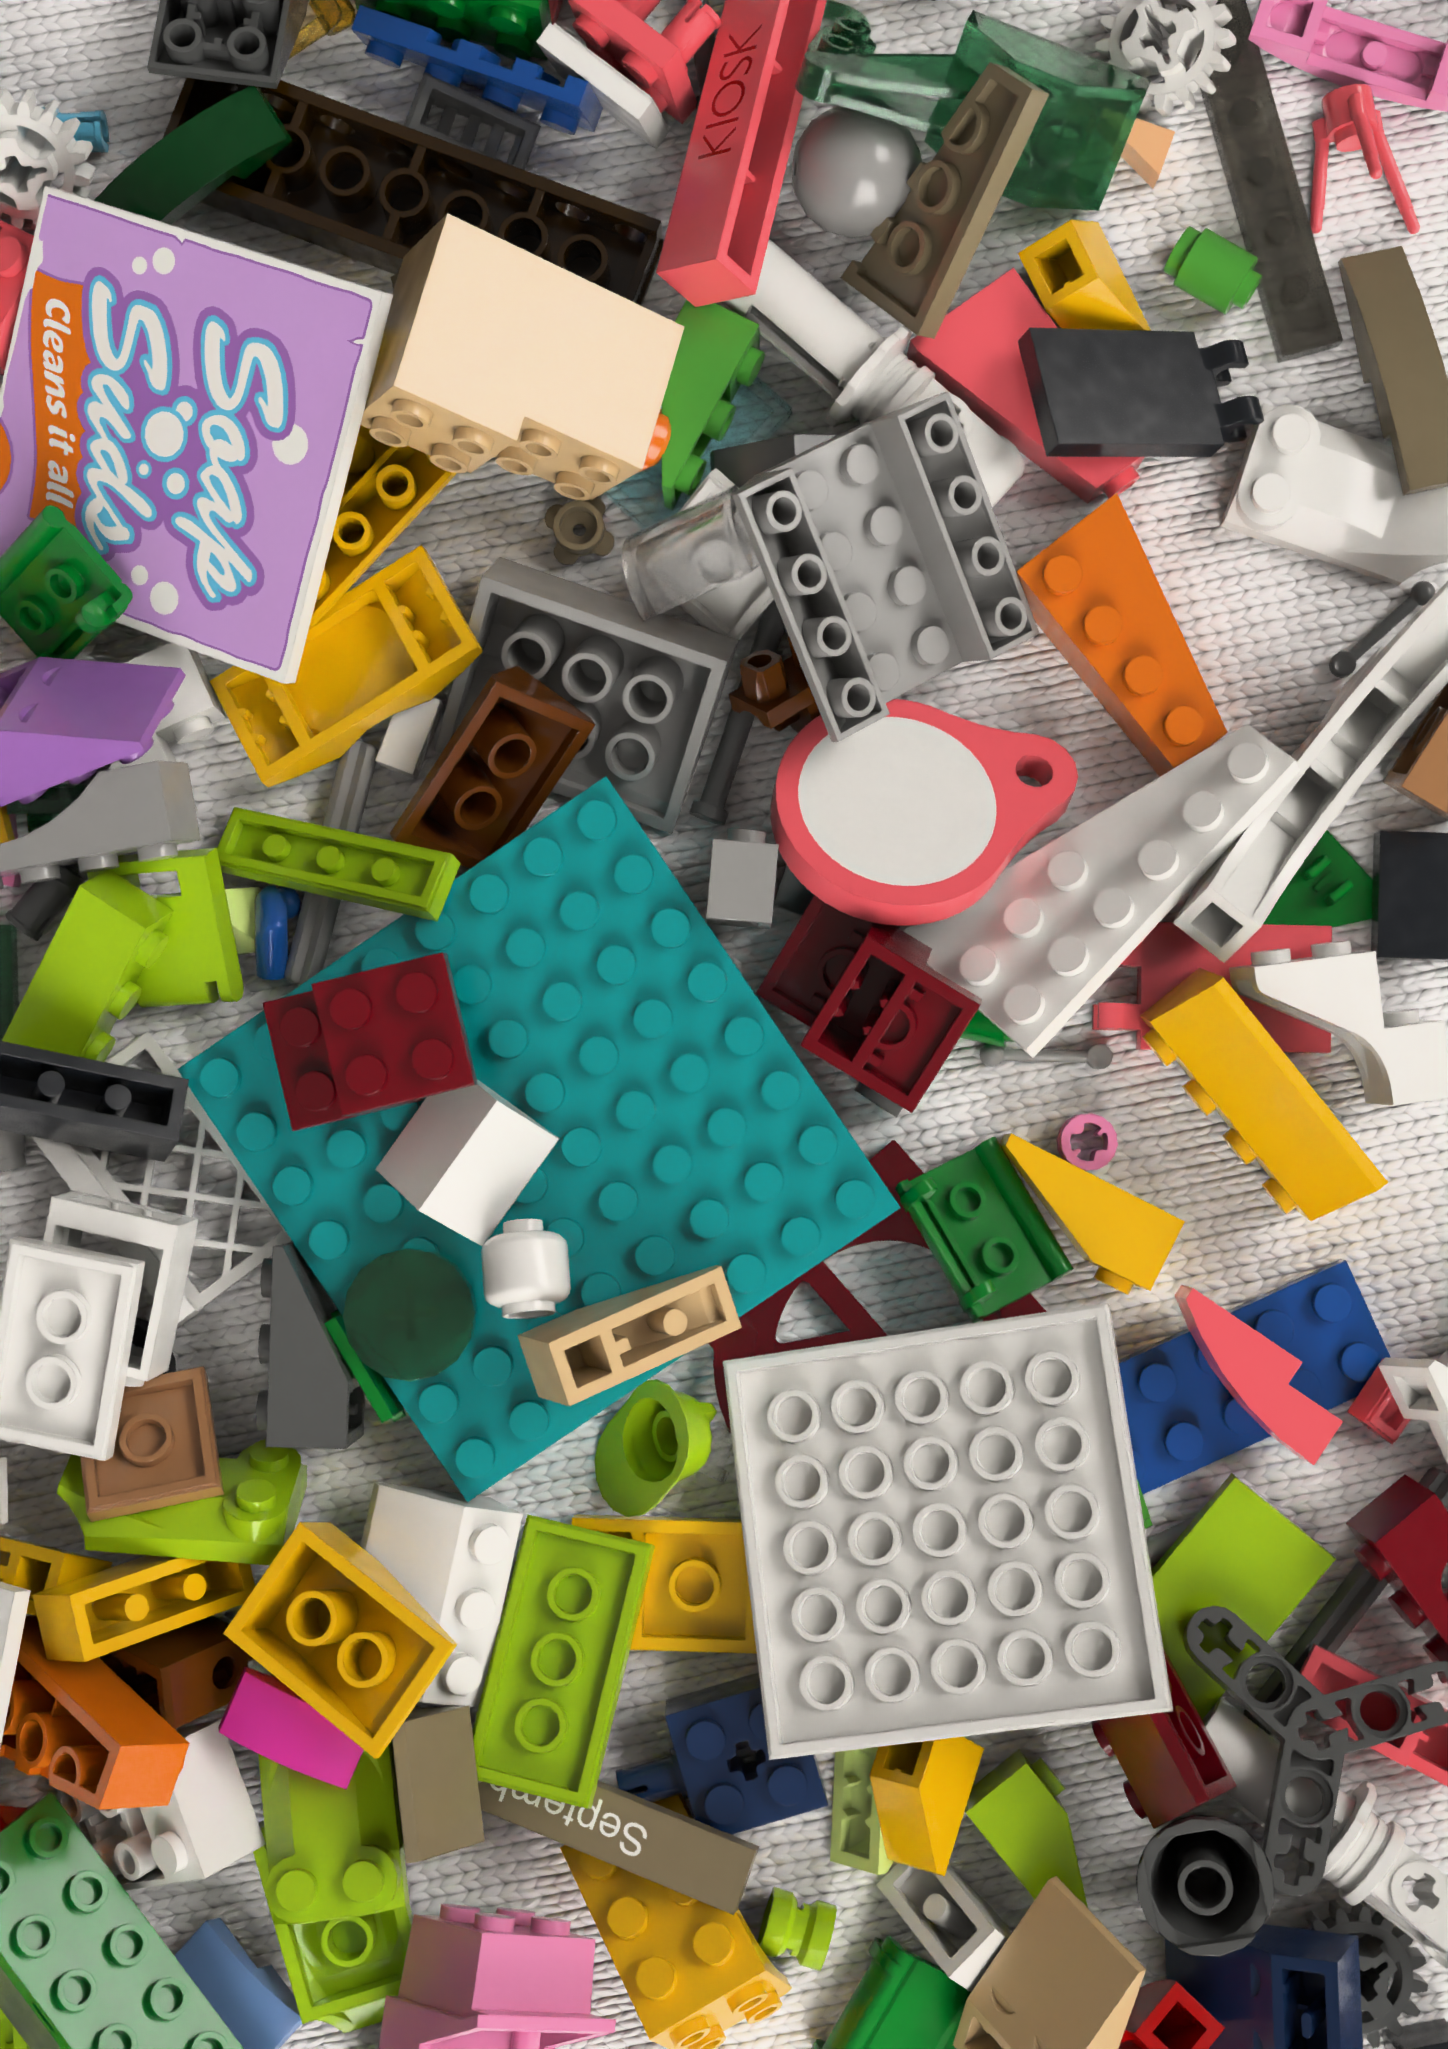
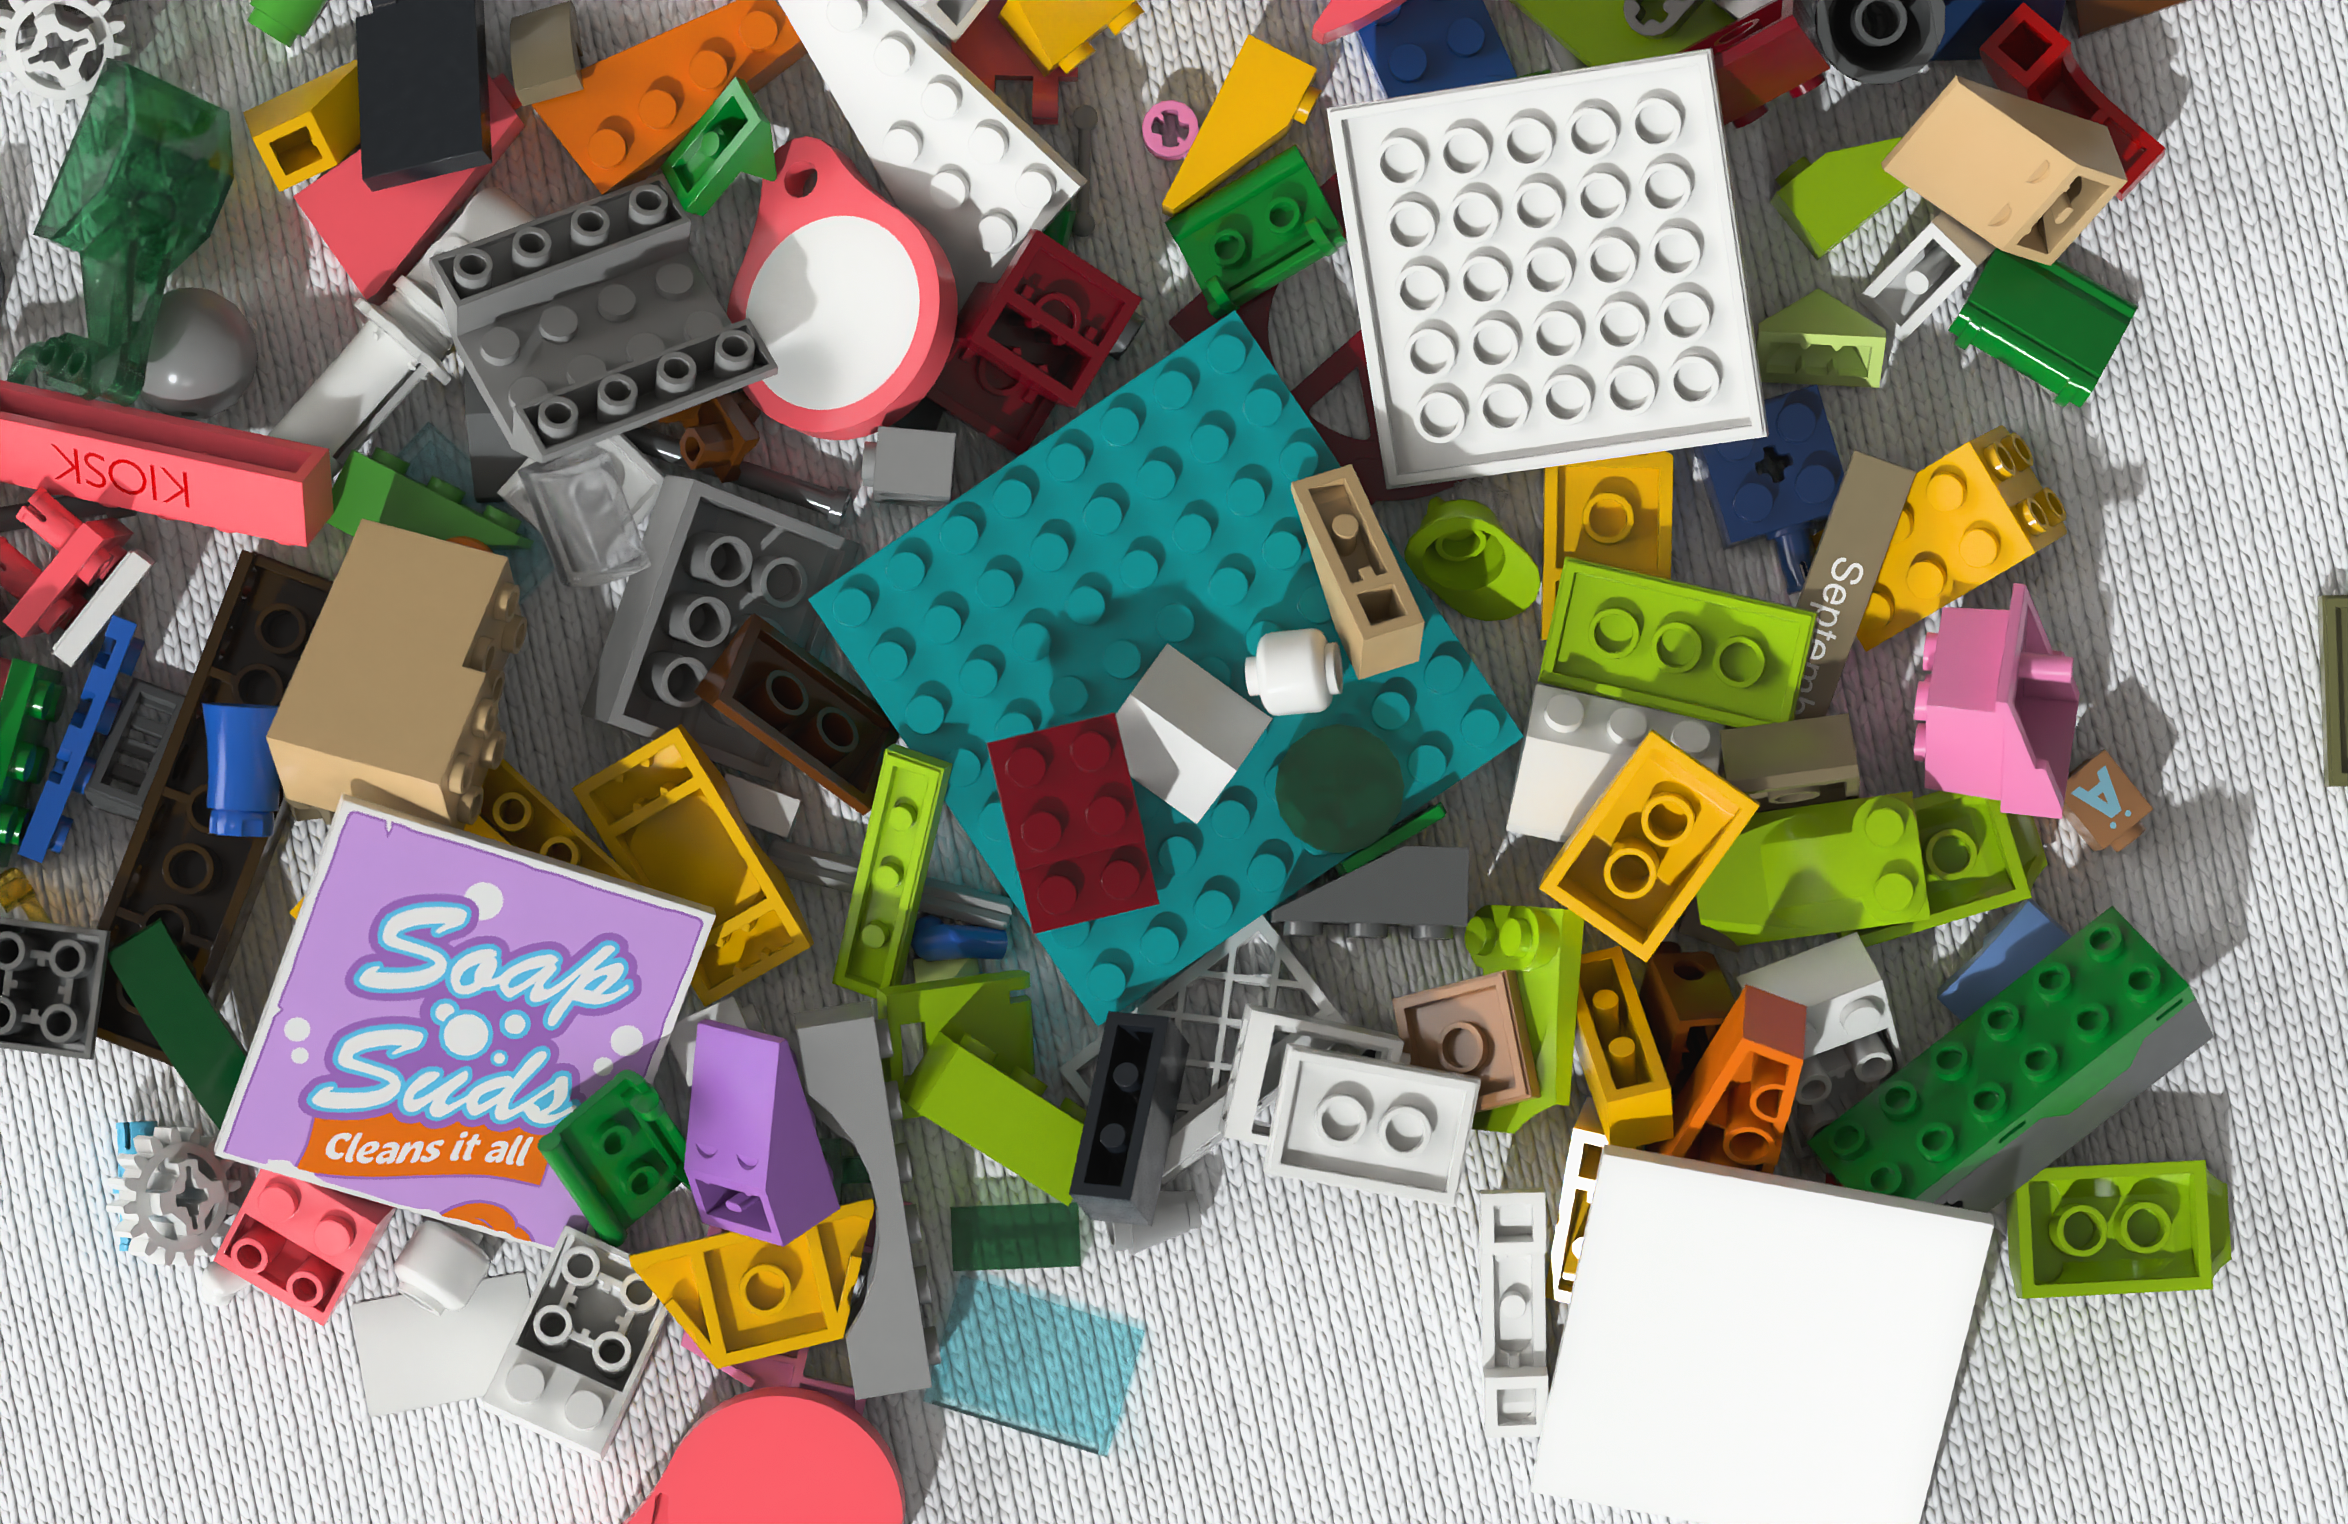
camera: 85 degrees left, 0 degrees up
(44, 902) = (930, 1175): dark grey pin -> none
(288, 1730) = (1739, 897): dark pink slope -> none
(410, 208) = (240, 769): none -> blue plant
(564, 520) = (566, 647): dark tan plate -> none
(800, 1929) = (1943, 412): lime wheel -> none
(923, 1797) = (1808, 293): yellow slope -> none
(936, 232) = (264, 273): dark tan wing -> none
(1067, 689) = (724, 142): none -> green slope
(1147, 149) = (167, 59): light nougat piece -> none
(1158, 516) = (546, 53): none -> dark tan slope

